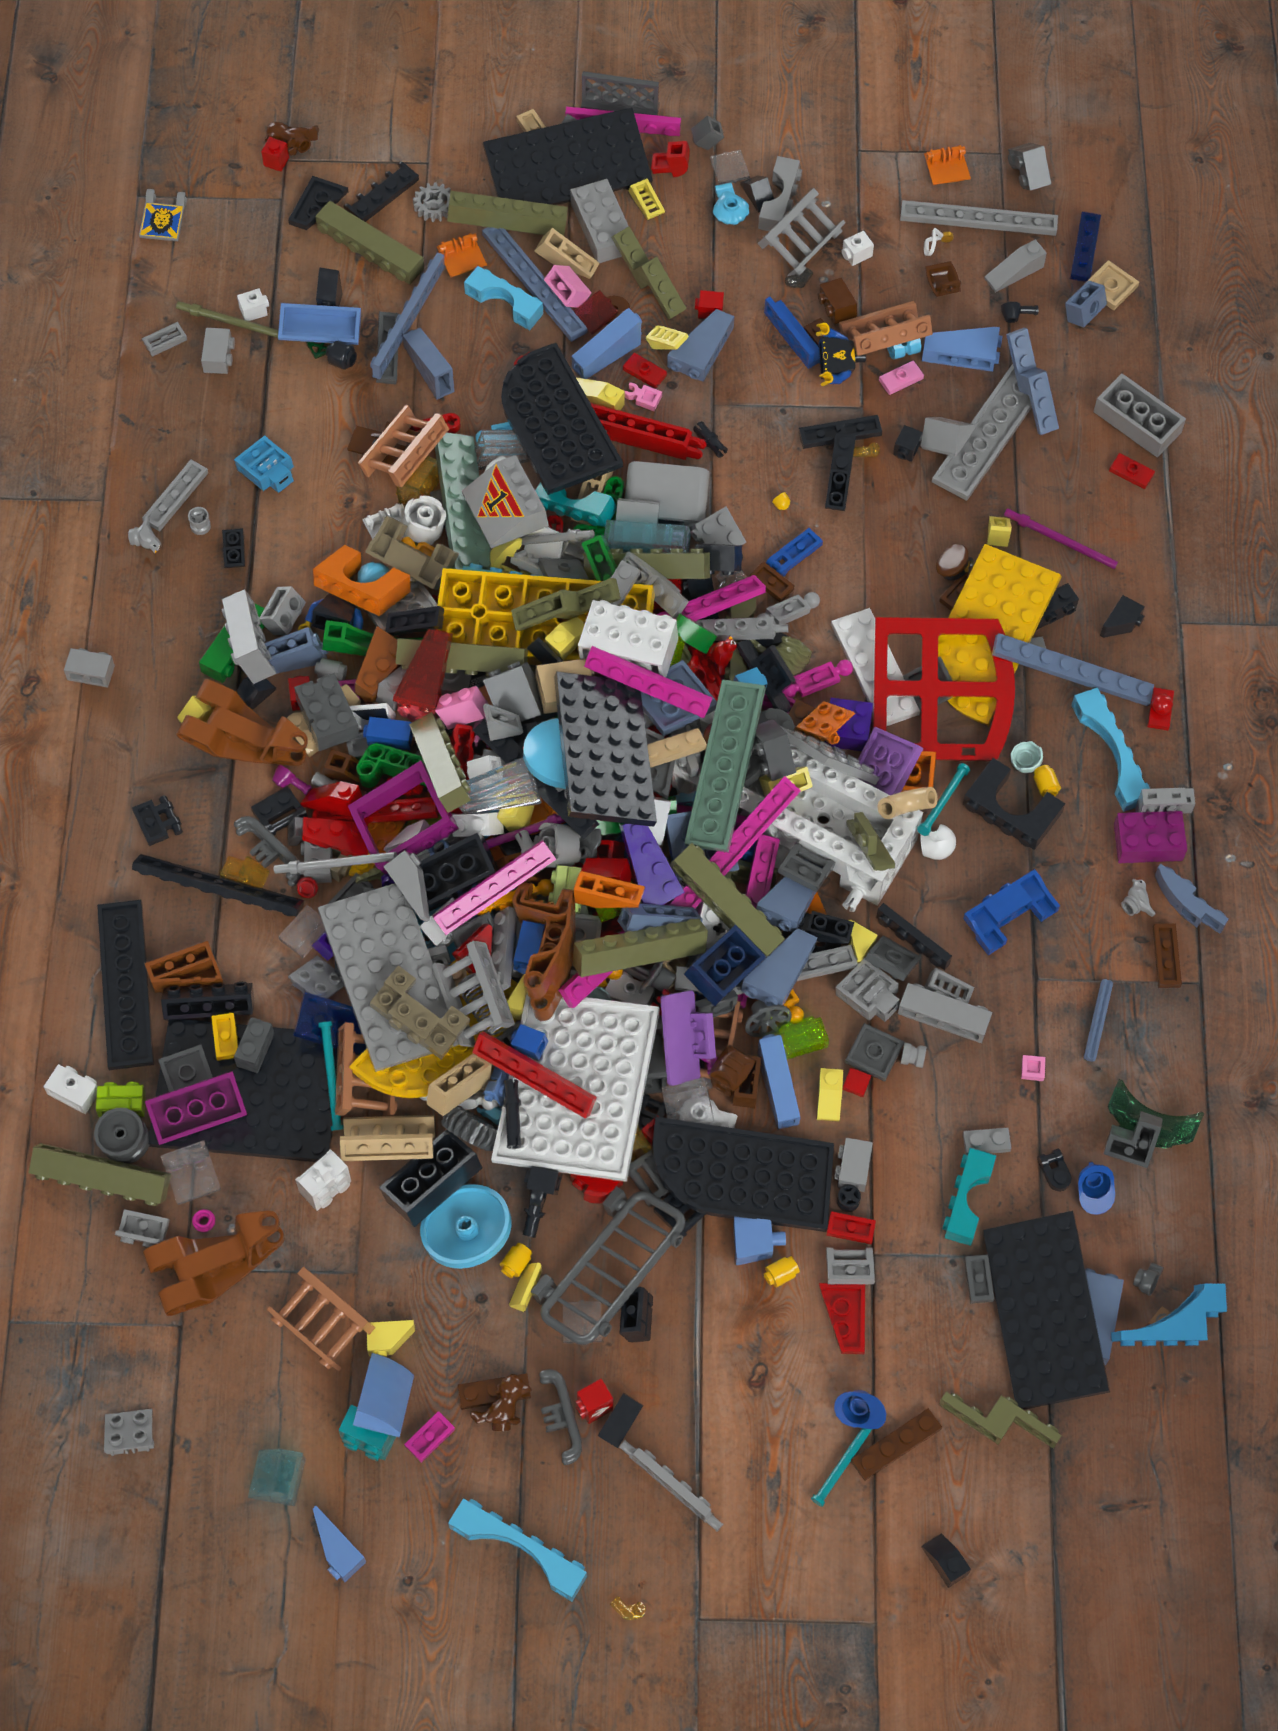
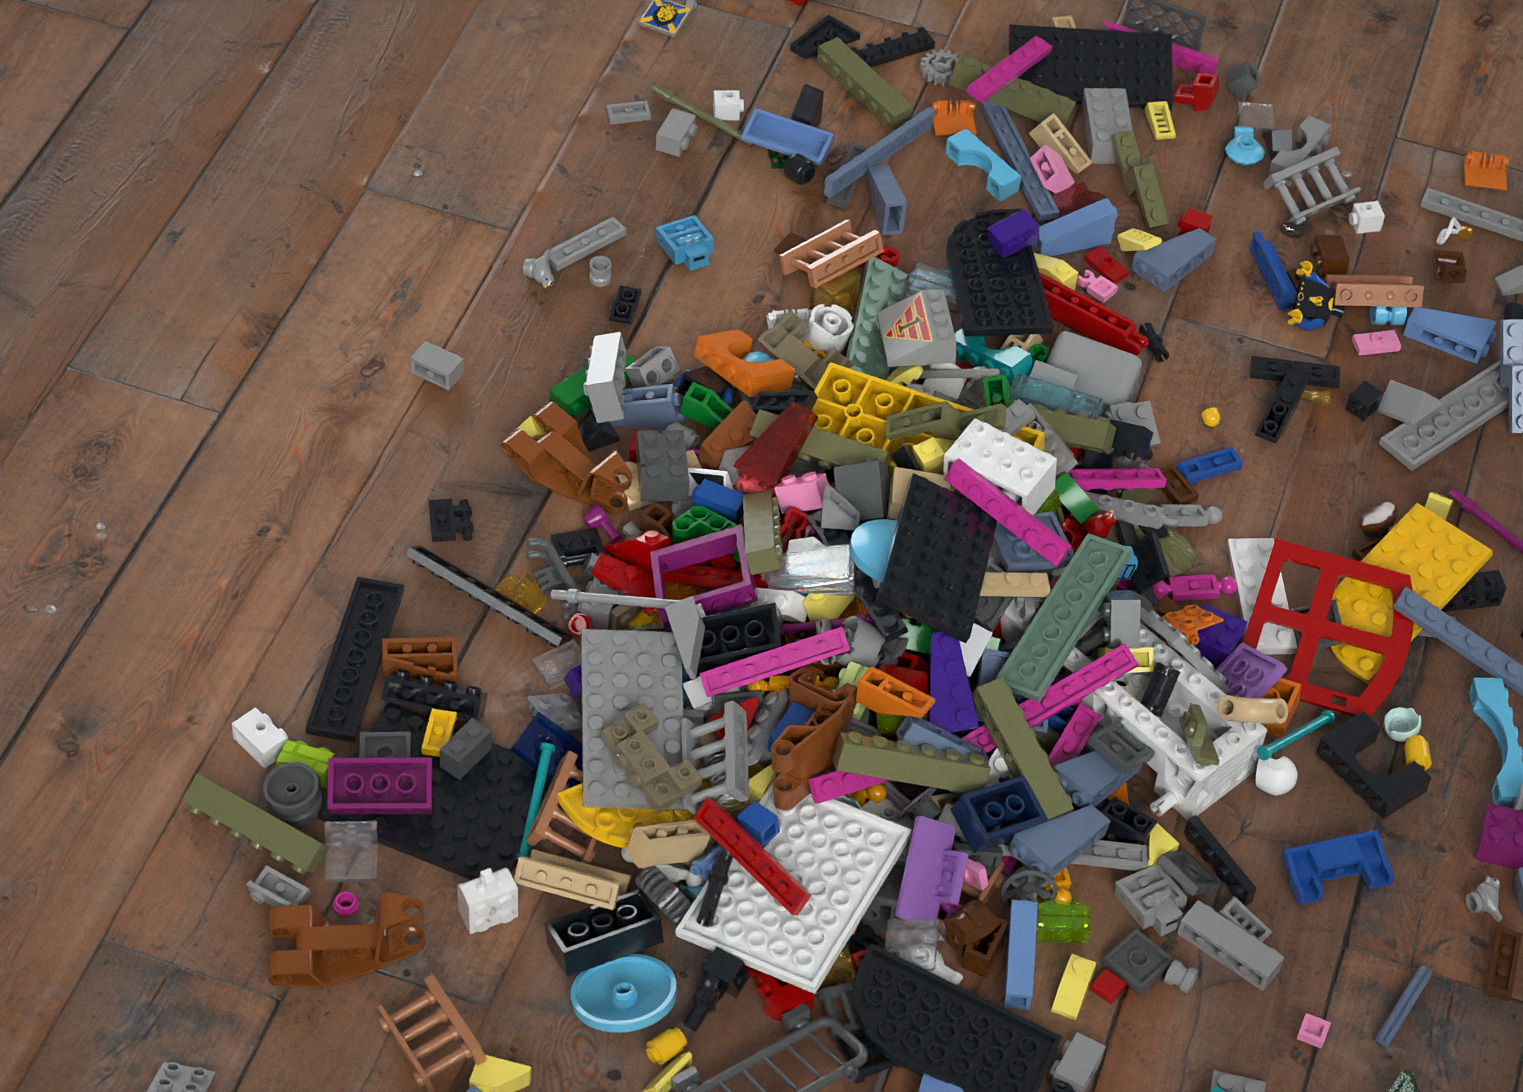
camera: 15 degrees right, 15 degrees down
(498, 194) = (1009, 69): none -> dark pink plate
(559, 376) = (1013, 233): none -> dark purple brick
(721, 1022) = (975, 875): none -> bright pink plate
(822, 802) = (1160, 689): none -> black hinge

